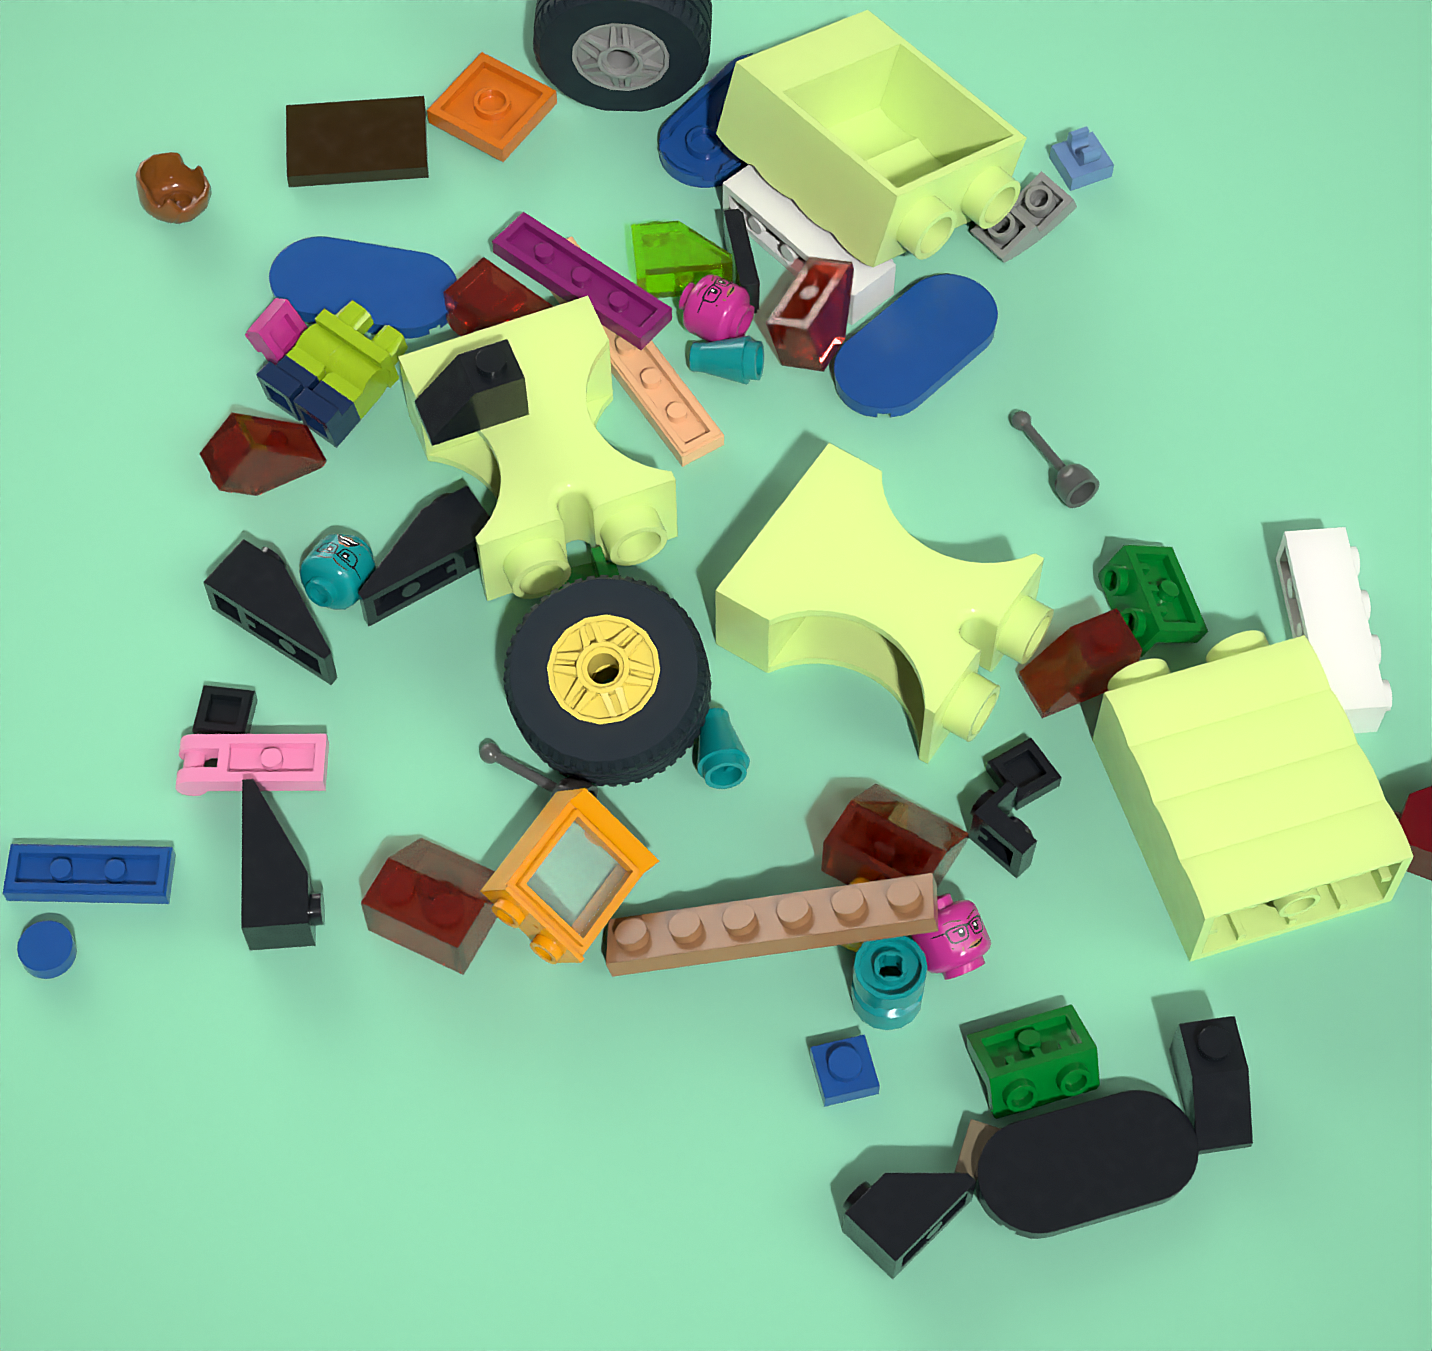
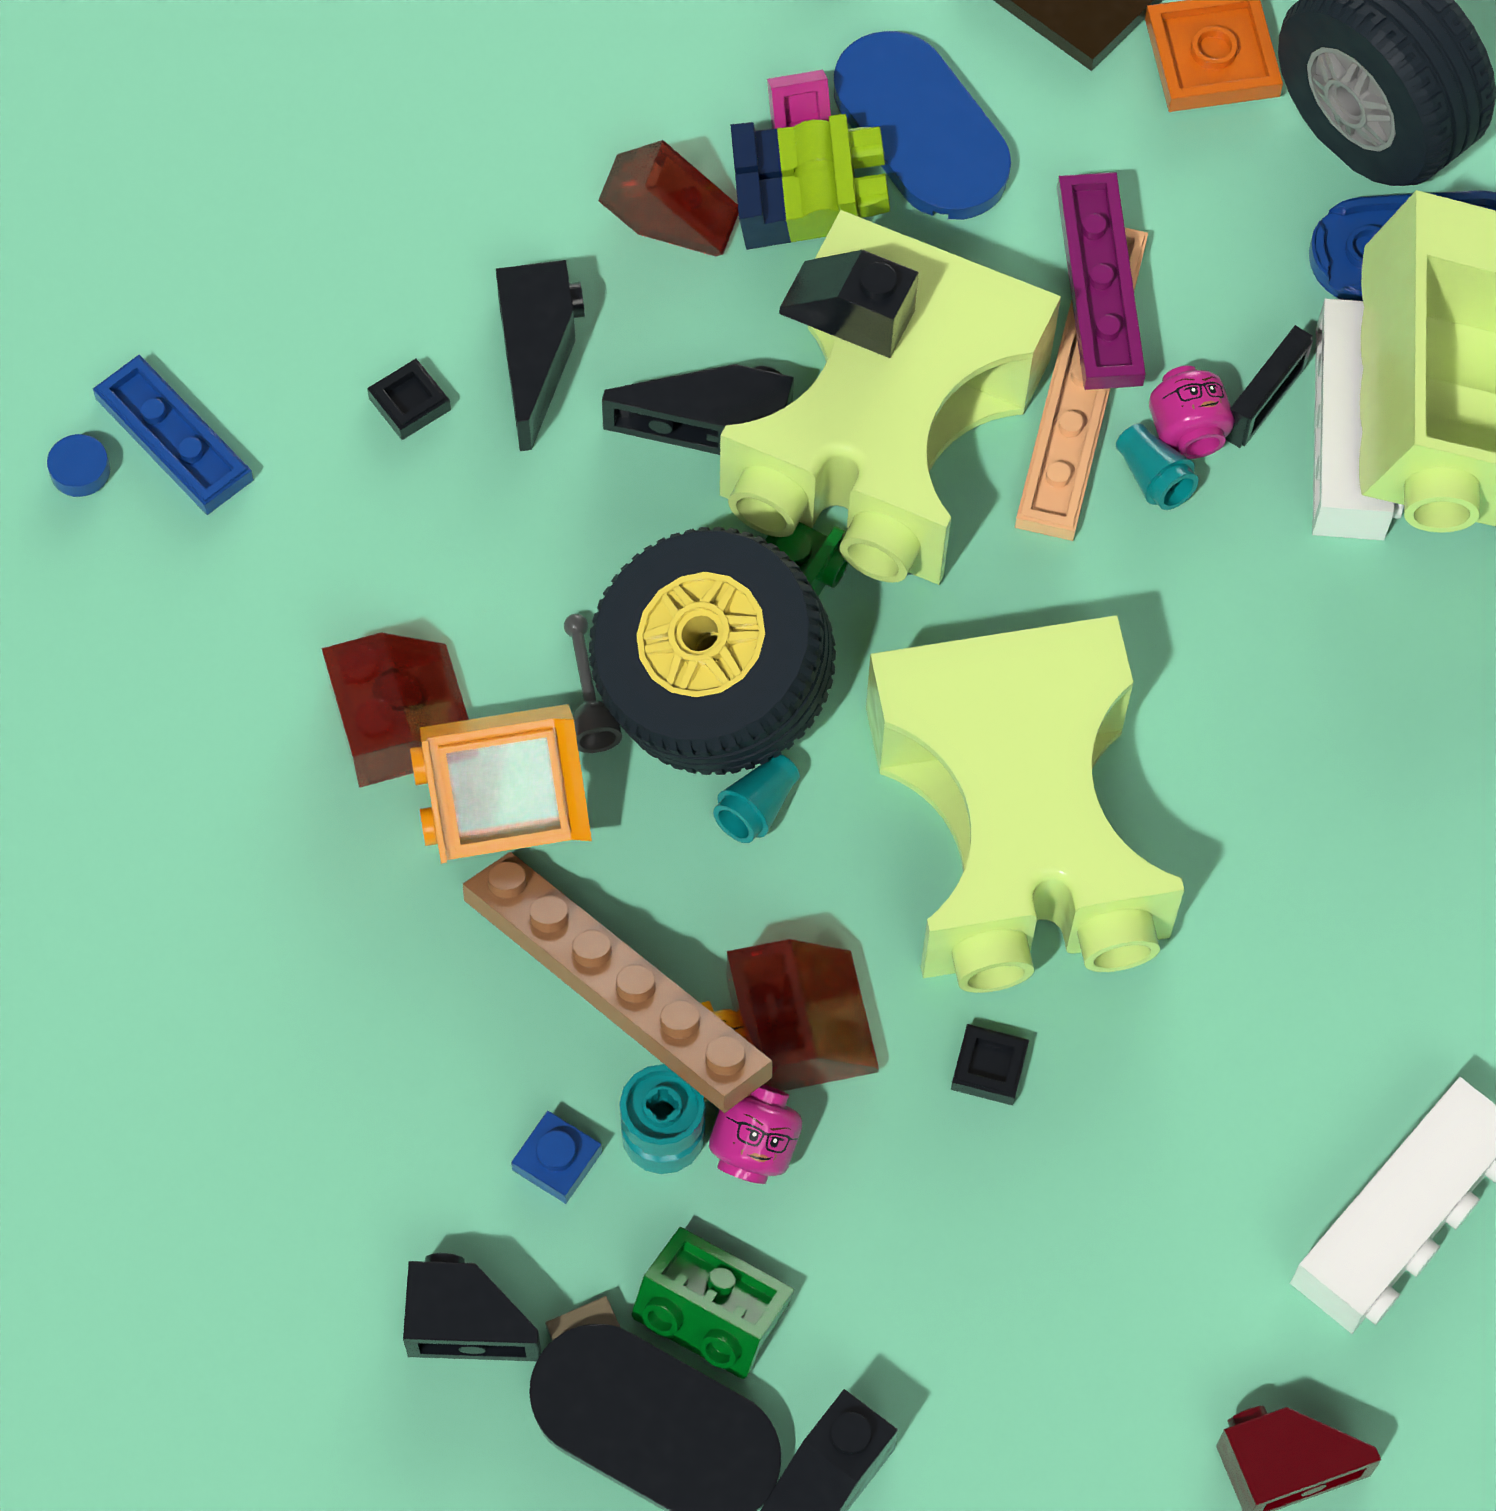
camera: 45 degrees right, 5 degrees up
(271, 760) = (384, 460): bright pink plate -> none
(276, 888) = (288, 575): black slope -> none
(337, 571) = (617, 354): teal head -> none
(488, 298) = (1002, 230): clear red slope -> none
(674, 255) = (1207, 329): clear neon green slope -> none
(813, 314) = (1267, 491): clear red slope -> none
(915, 345) = (1343, 604): blue tile -> none
(1001, 836) = (905, 1091): black bracket -> none
(1074, 481) = (1335, 856): dark grey hinge -> none
(1080, 663) = (1144, 1019): clear red slope -> none
(1152, 596) = (1280, 1023): green bracket -> none
(1248, 793) = (1143, 1261): yellowish green brick -> none

